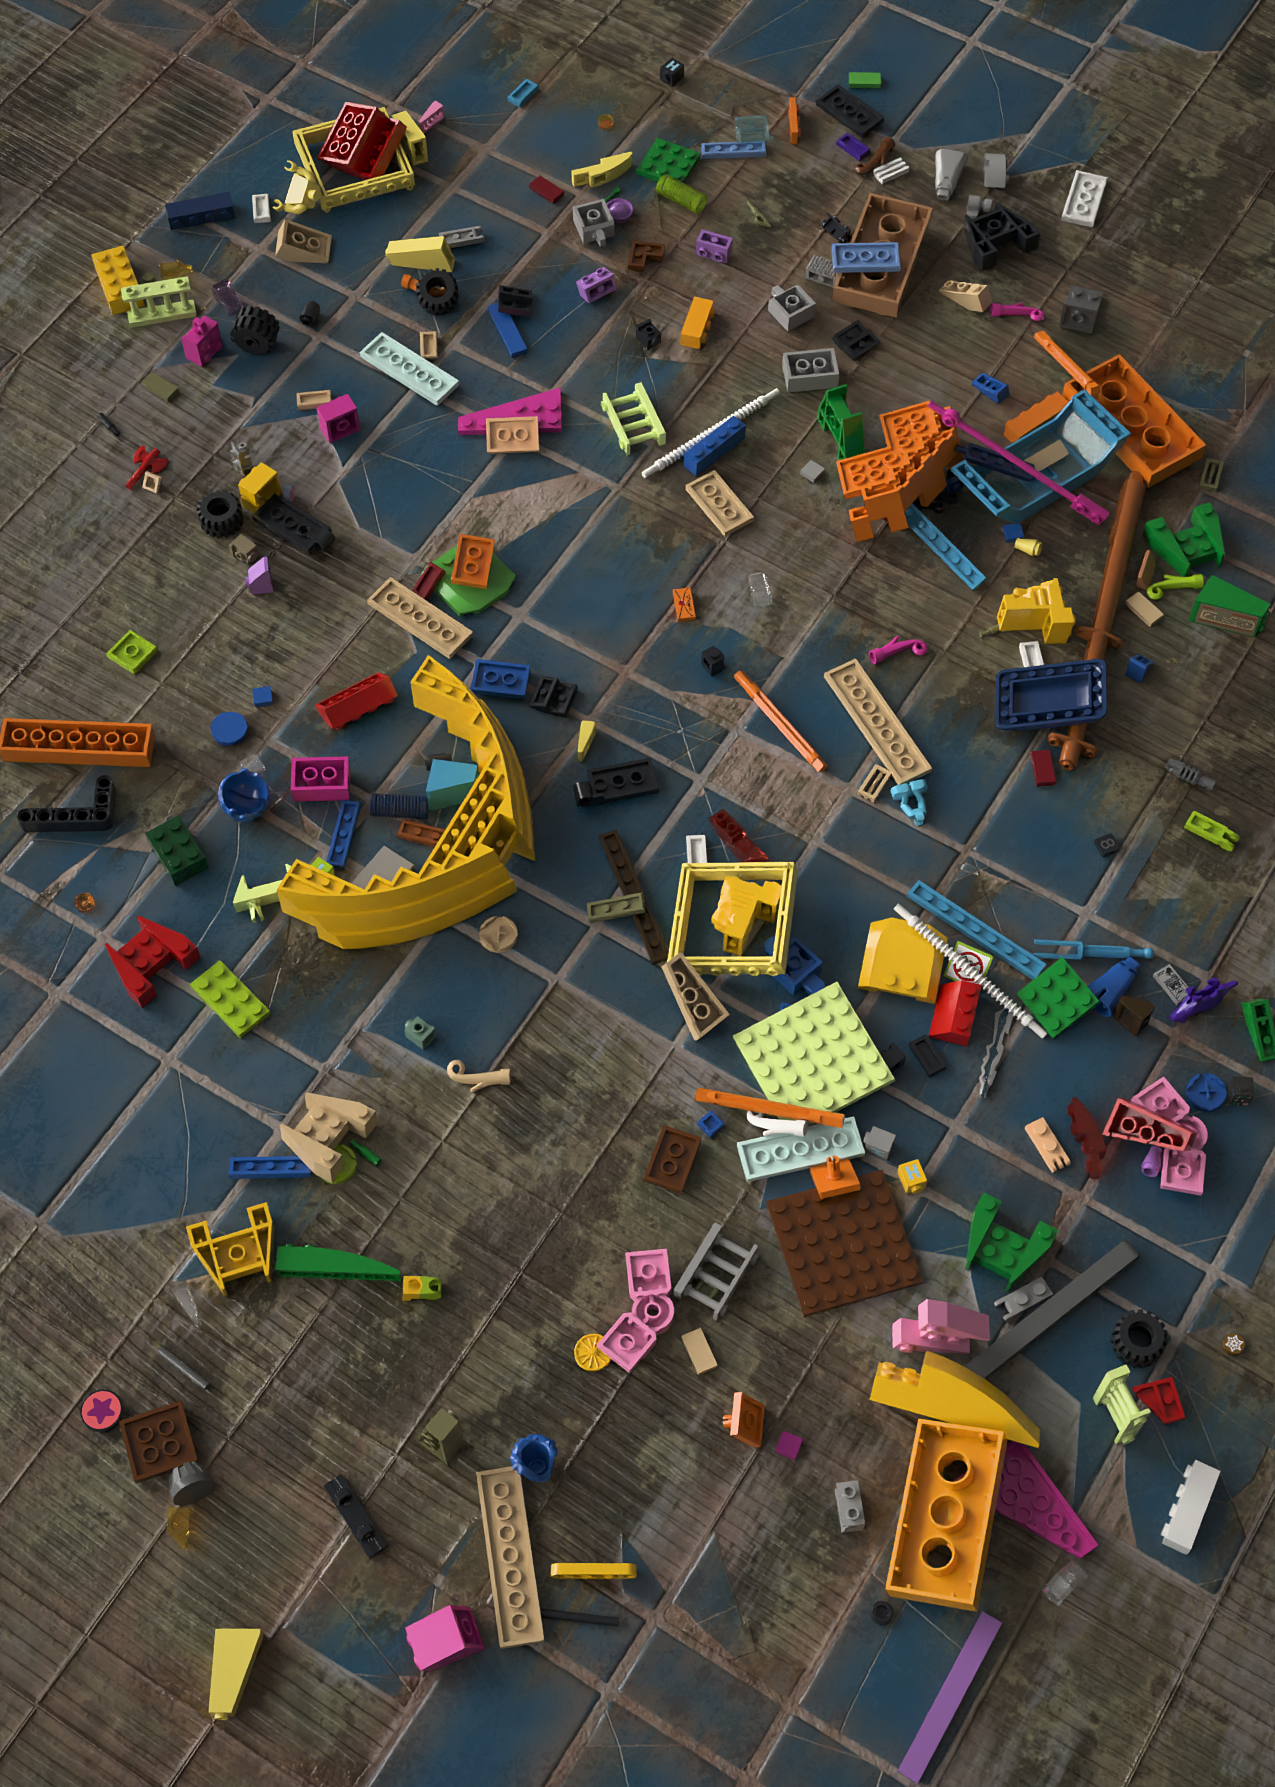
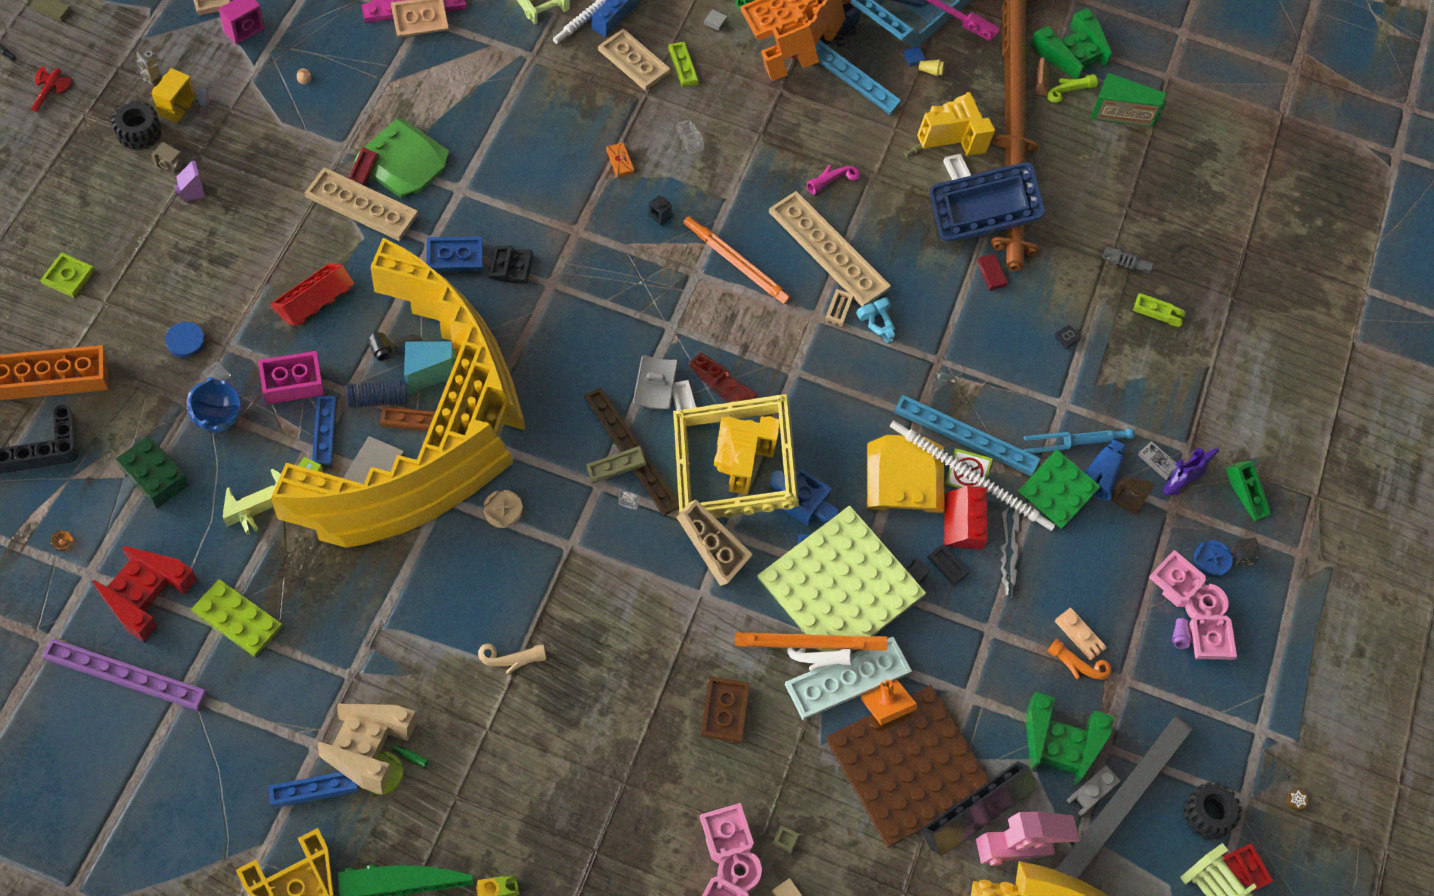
camera: 20 degrees left, 0 degrees up
(120, 1035) = (124, 674): none -> medium lavender tile
(152, 482) = (58, 102): tan slope -> none
(262, 696) = (214, 302): blue tile -> none
(290, 521) = (211, 125): black hinge -> none
(388, 483) = (303, 76): none -> light nougat hinge
(410, 760) = (380, 346): none -> black brick
(422, 1037) = (444, 627): sand green brick -> none
(472, 561) = (405, 141): orange plate -> none
(587, 733) = (552, 294): light yellow slope -> none
(602, 789) = (578, 349): black hinge -> none
(621, 943) = (628, 499): none -> clear tile
(671, 833) = (655, 382): none -> light grey shield
(705, 1254) = (773, 820): light grey fence -> none
(710, 1124) = (754, 667): blue tile -> none
(769, 513) = (683, 64): none -> lime tile
(879, 1142) = (922, 658): light grey brick -> none
(902, 1294) = (979, 808): none -> black brick
(912, 1177) = (962, 687): yellow brick -> none
(1035, 1173) = (1075, 663): none -> orange plant
(1087, 1131) = (1114, 613): clear red slope -> none
(1138, 667) = (1057, 168): blue slope -> none
(1143, 1125) = (1168, 600): red wedge -> none
(1144, 609) = (1049, 112): tan tile -> none

